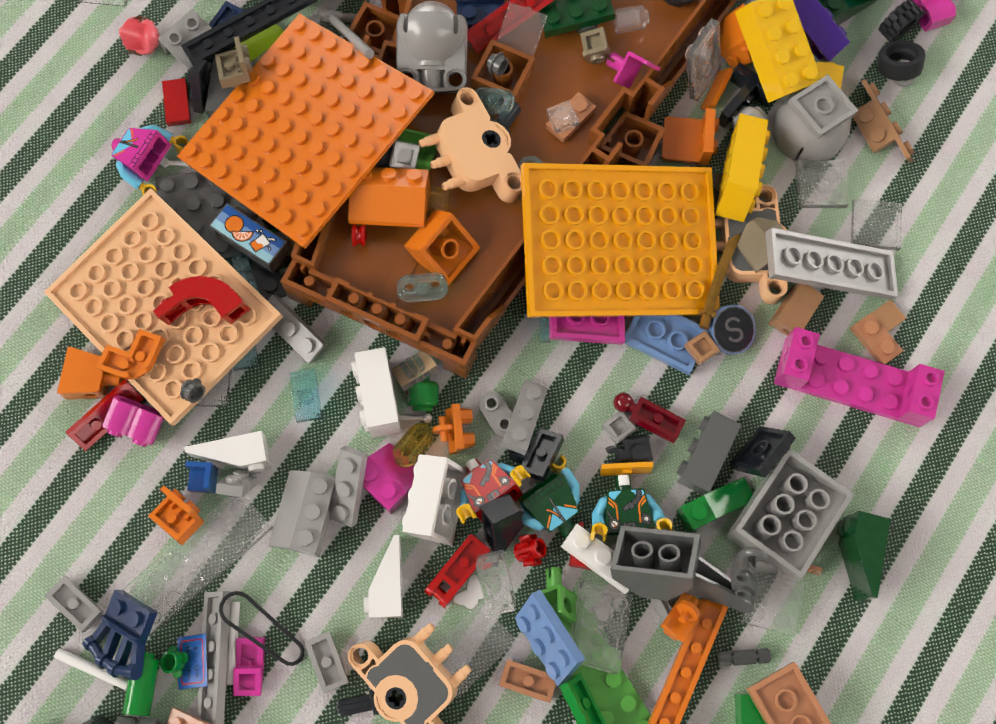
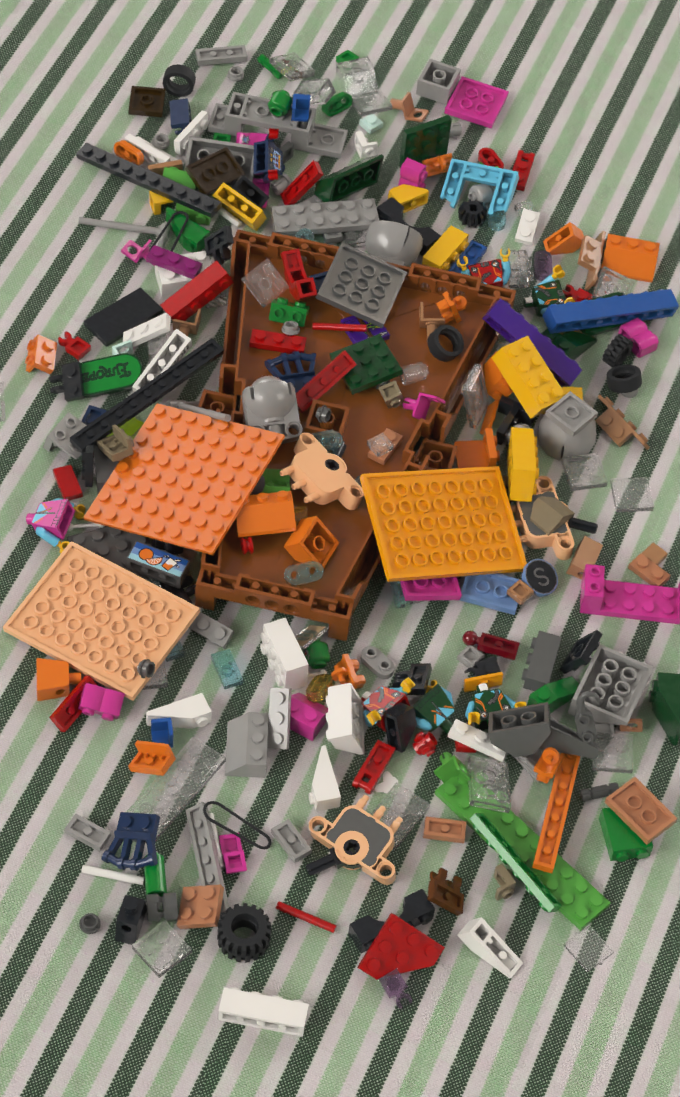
camera: 15 degrees left, 20 degrees down
(135, 362) = (93, 659): orange plate -> none
(139, 35) = (28, 438): coral hair -> none
(173, 661) = (171, 855): green plate -> none
(195, 669) = (188, 856): blue sticker -> none
(201, 291) = (139, 600): red arch -> none
(236, 484) = (193, 728): light grey plate -> none
(404, 155) = (270, 483): light grey tile -> none
(496, 583) = (406, 764): clear brick -> none
(521, 28) = (334, 388): clear piece -> none
(524, 417) = (398, 657): light grey plate -> none
(549, 638) = (454, 791): medium blue plate -> none
(707, 312) = (519, 566): pearl gold sword -> none
(831, 264) = (603, 520): light grey plate -> none

